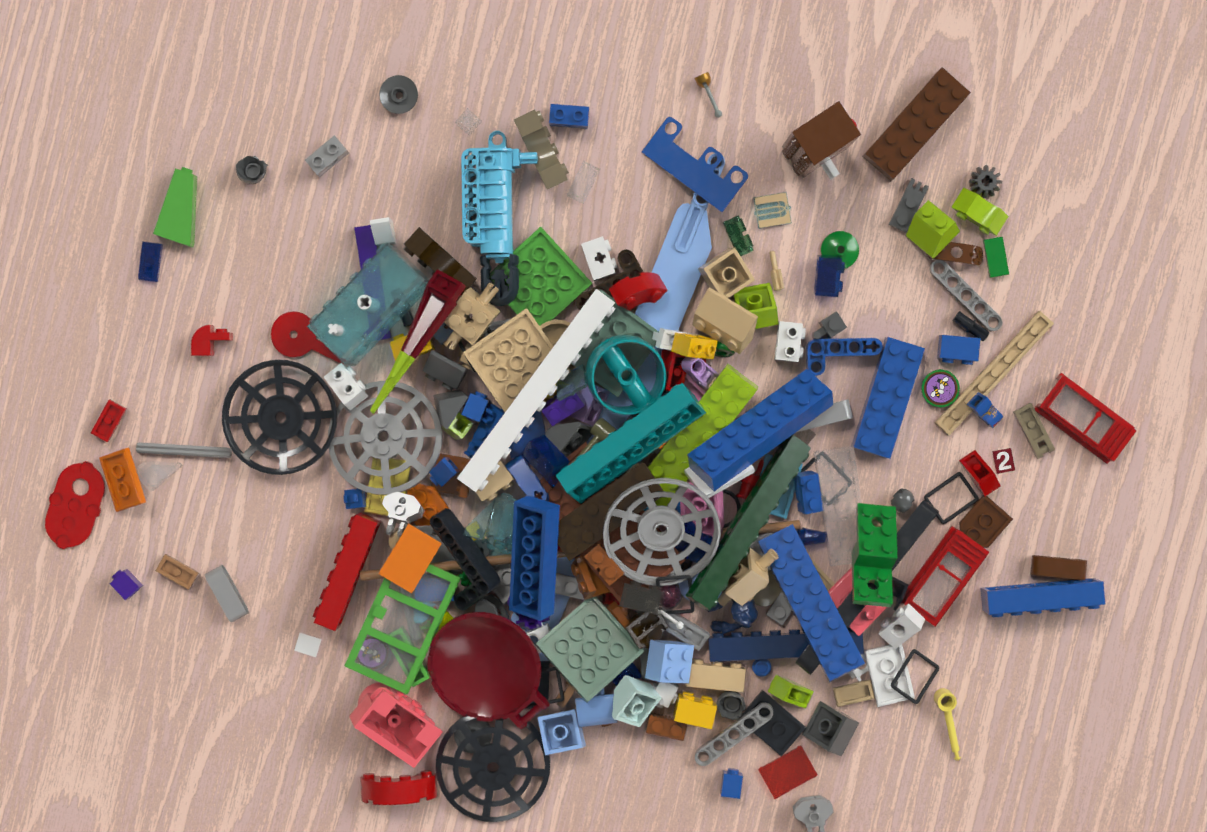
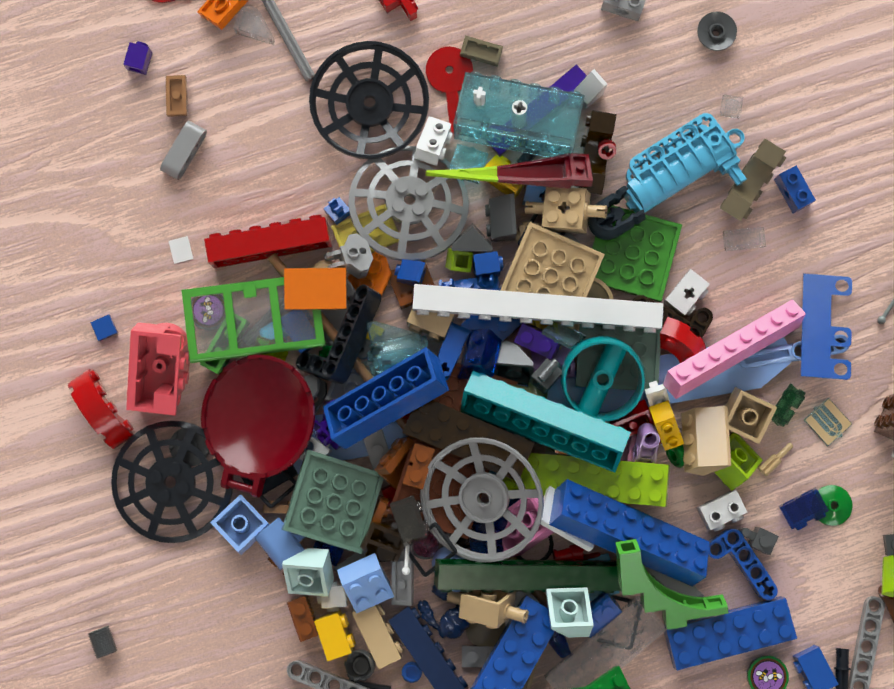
camera: 60 degrees right, 5 degrees down
(294, 298) = (481, 51): none -> dark tan plate
(334, 745) = (104, 327): none -> blue tile
(378, 367) = (467, 158): none -> clear light blue piece
(440, 245) = (602, 153): none -> bush
(595, 417) = (546, 375): none -> dark grey brick
(667, 253) = (733, 349): none -> bright pink brick
(791, 516) = (570, 611): none -> light aqua slope
(822, 440) = (675, 607): none -> bright green arch

